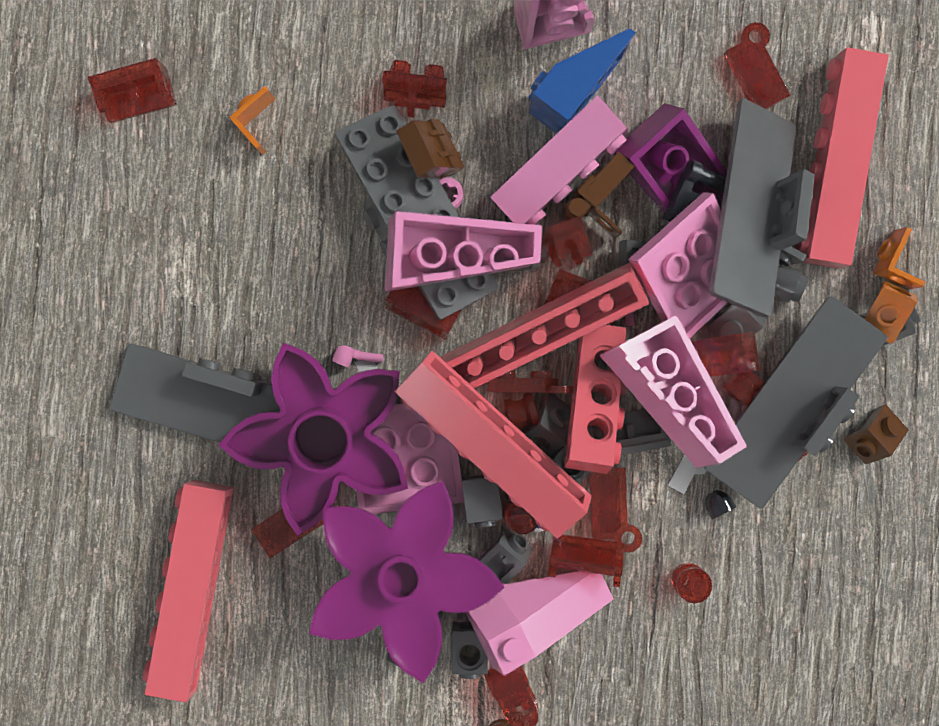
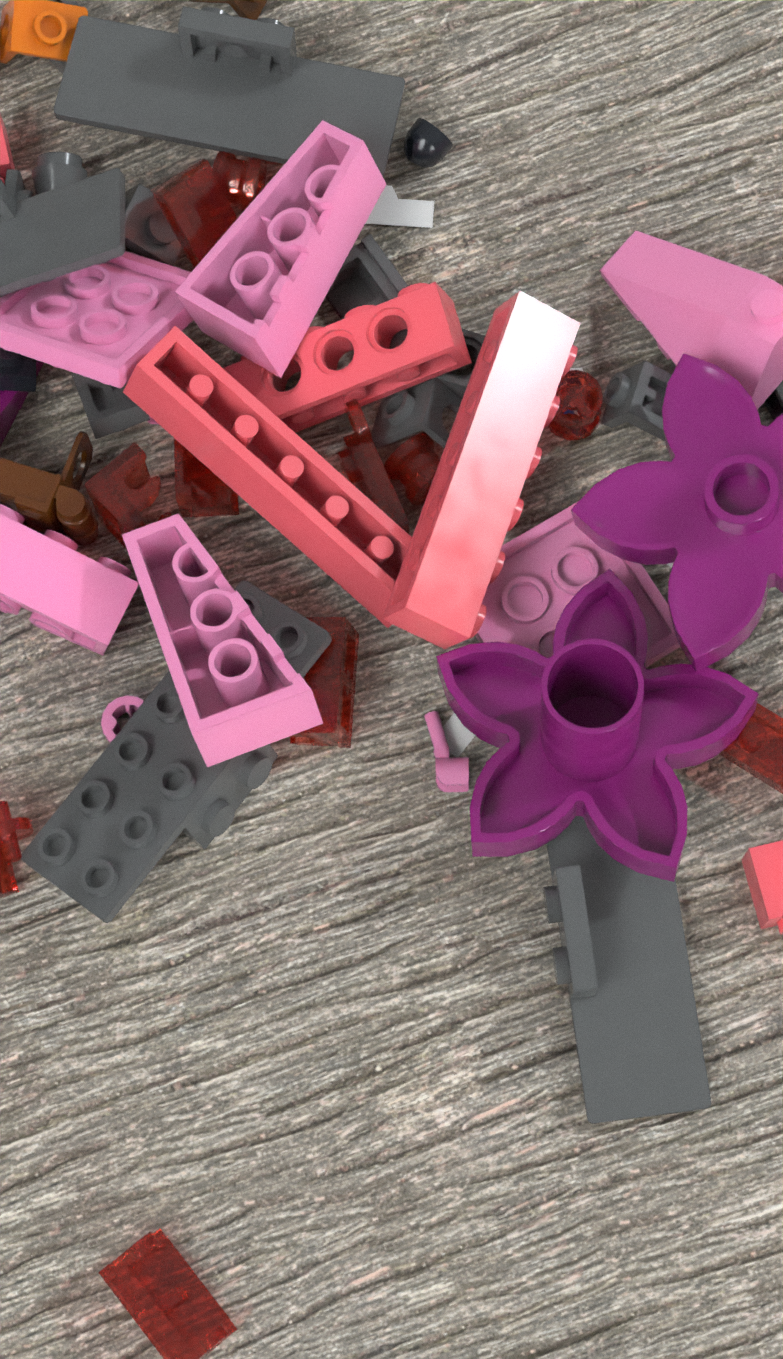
camera: 110 degrees left, 15 degrees down
(248, 109) = (123, 1096): orange bracket -> none
(430, 148) = (70, 763): reddish brown piece -> none
(481, 501) = (574, 466): dark grey brick -> none
(587, 556) = (588, 283): clear red hinge -> none
(609, 508) = (489, 286): clear red hinge -> none
(697, 588) = (558, 118): clear red wheel -> none

